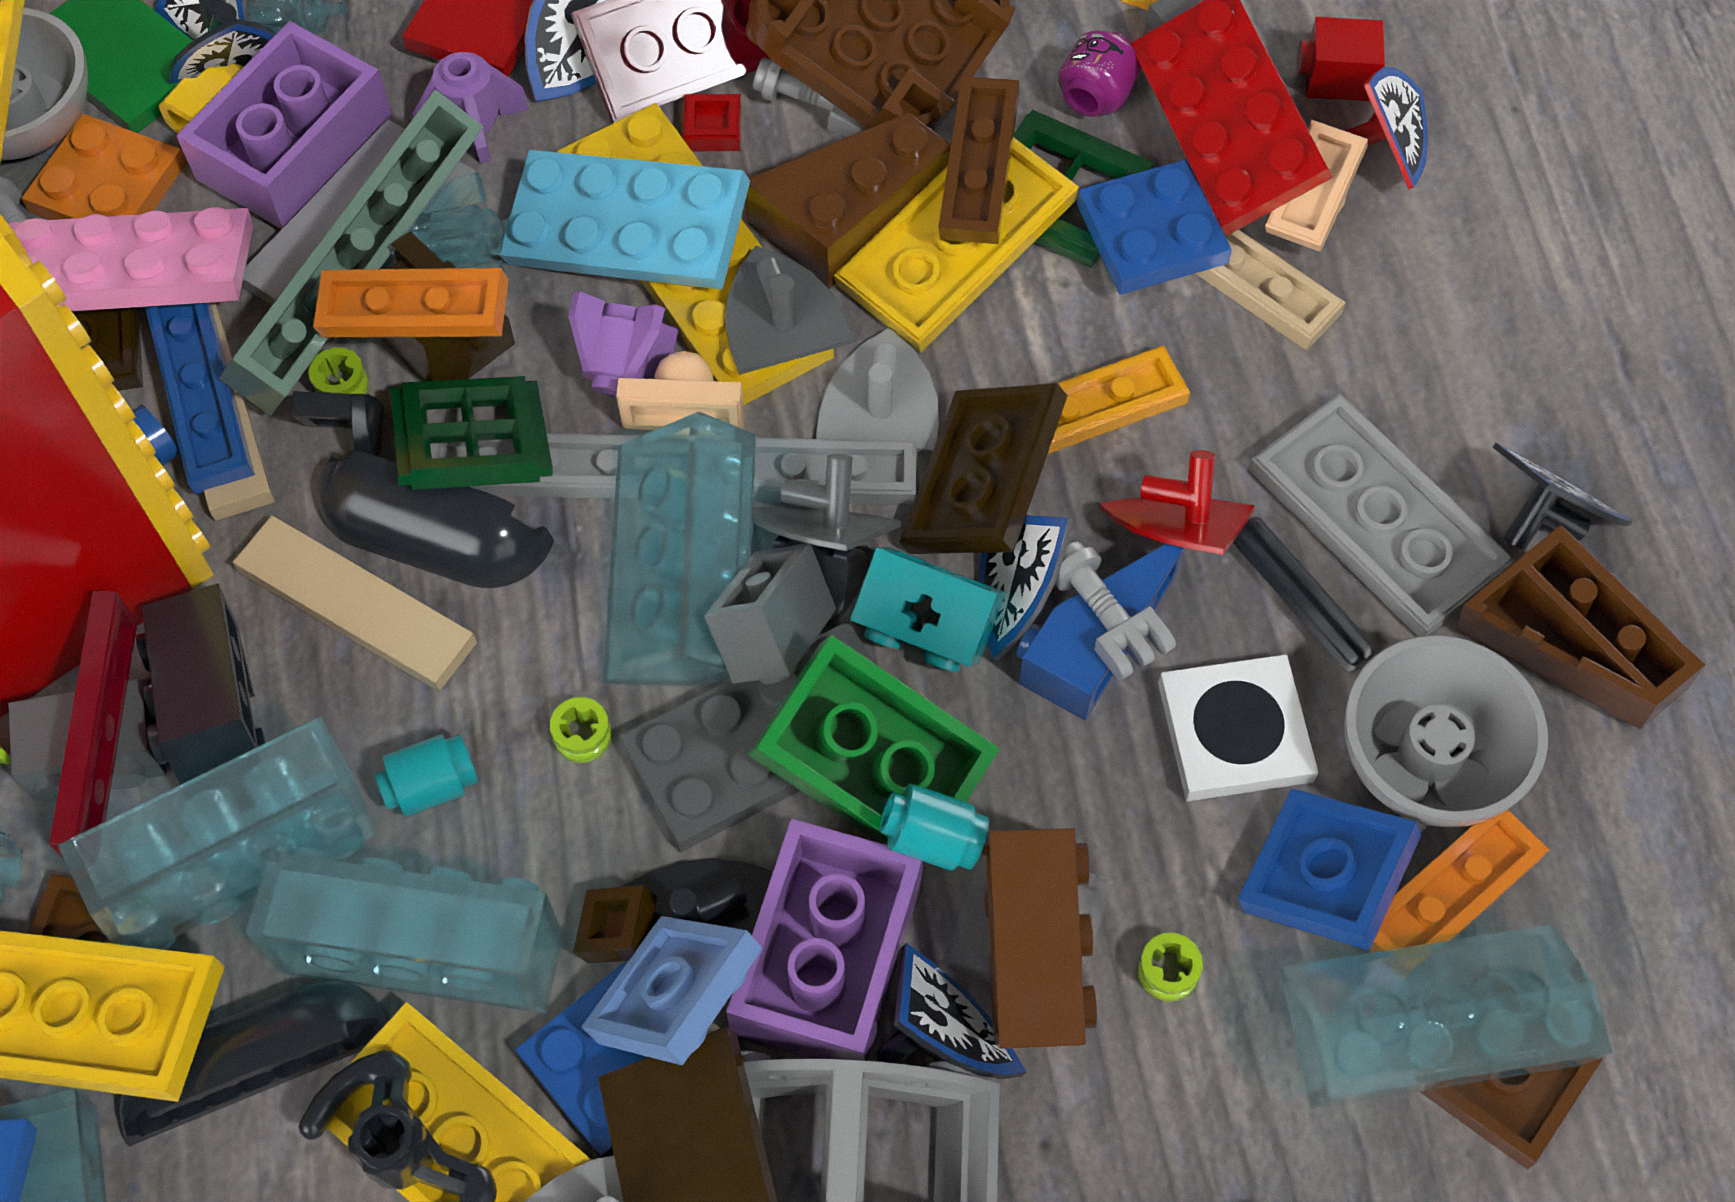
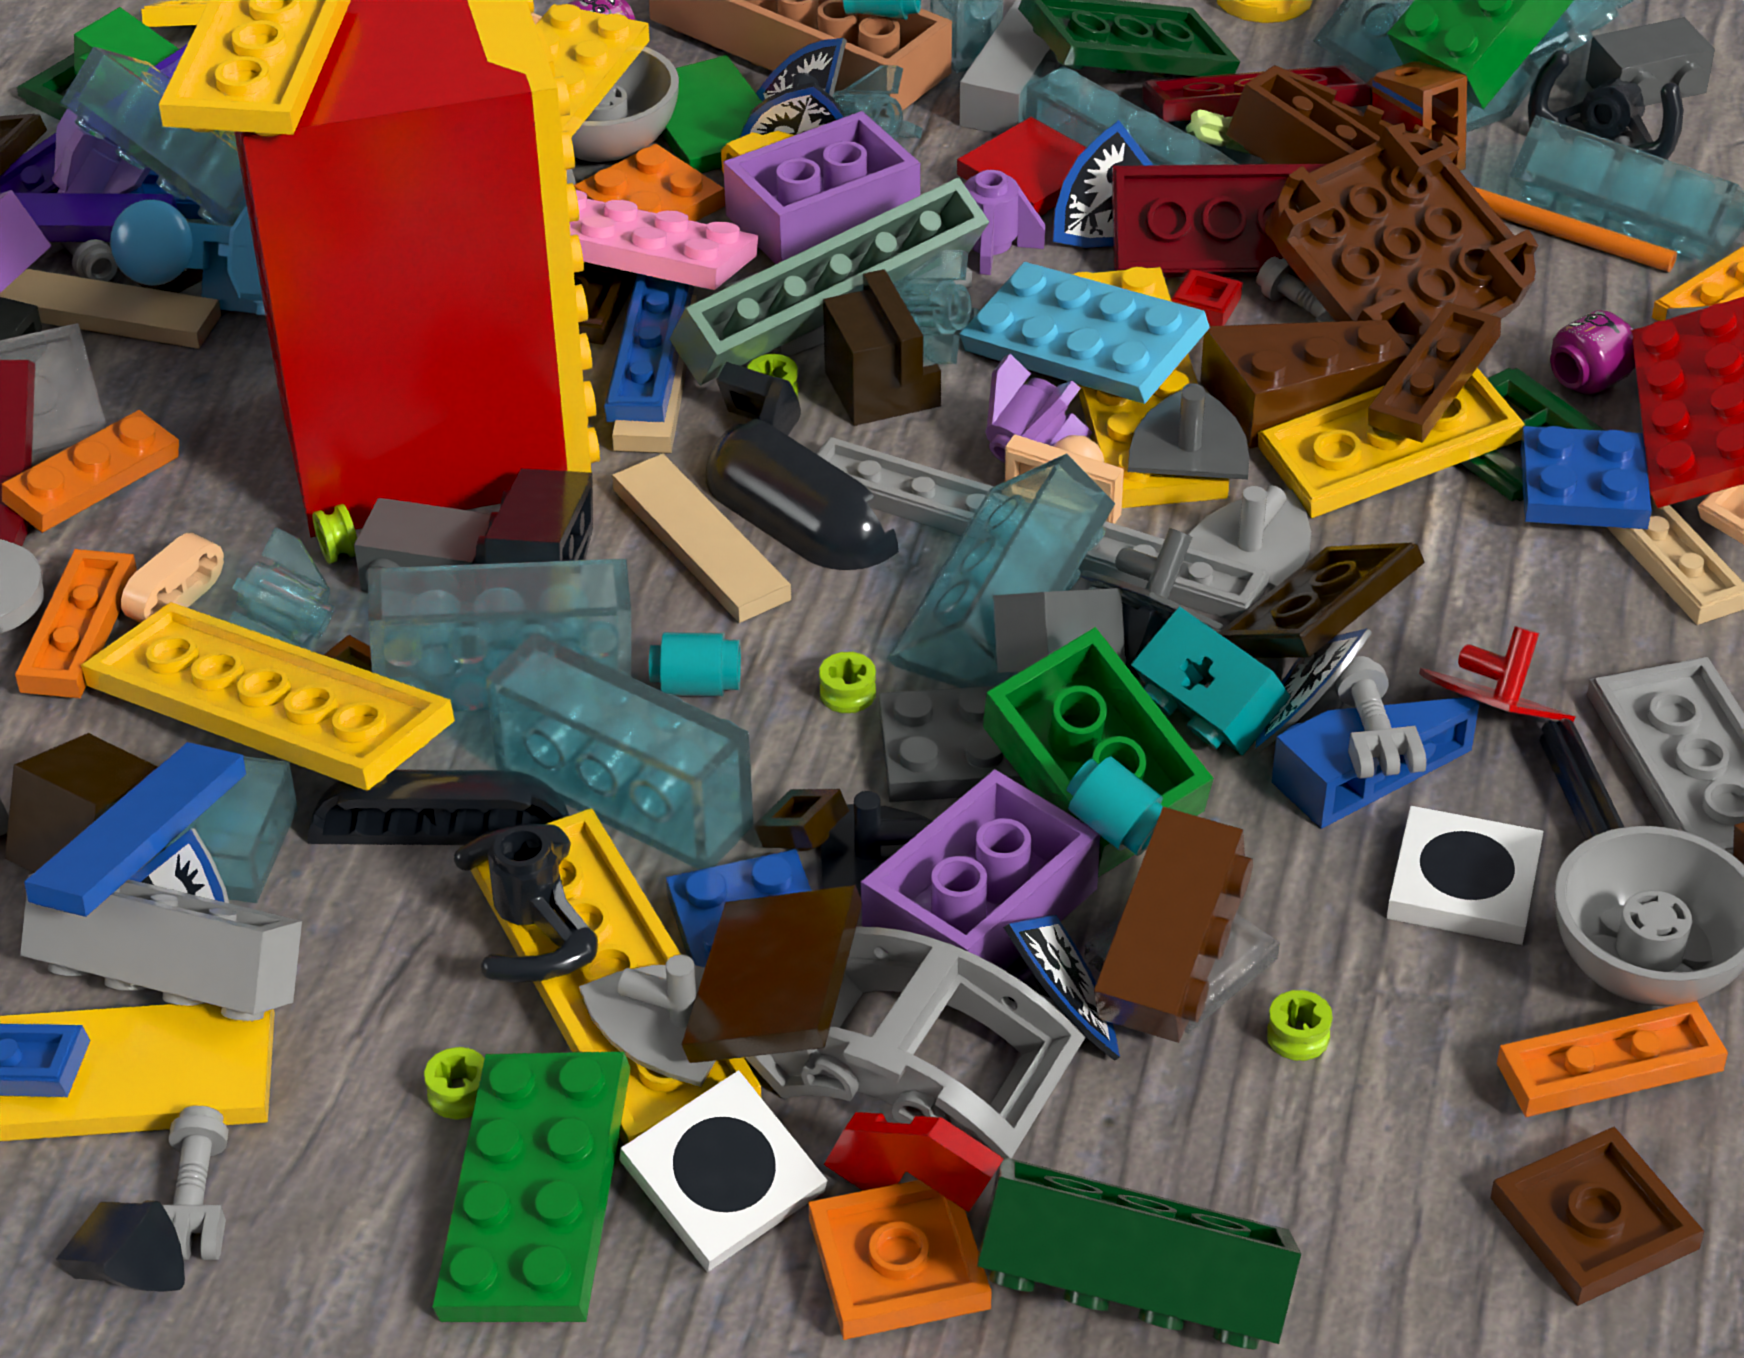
camera: 25 degrees right, 20 degrees down
(95, 718) = (449, 506): dark red tile -> none
(161, 441) = (599, 373): blue tile -> none
(411, 302) = (857, 310): orange plate -> none
(415, 435) = (863, 438): dark green piece -> none
(672, 989) = (813, 856): medium blue plate -> none
(1118, 396) = (1468, 600): light orange tile -> none
(1330, 868) = (1494, 990): blue plate -> none
(1442, 1015) = (1539, 1135): clear light blue slope -> none

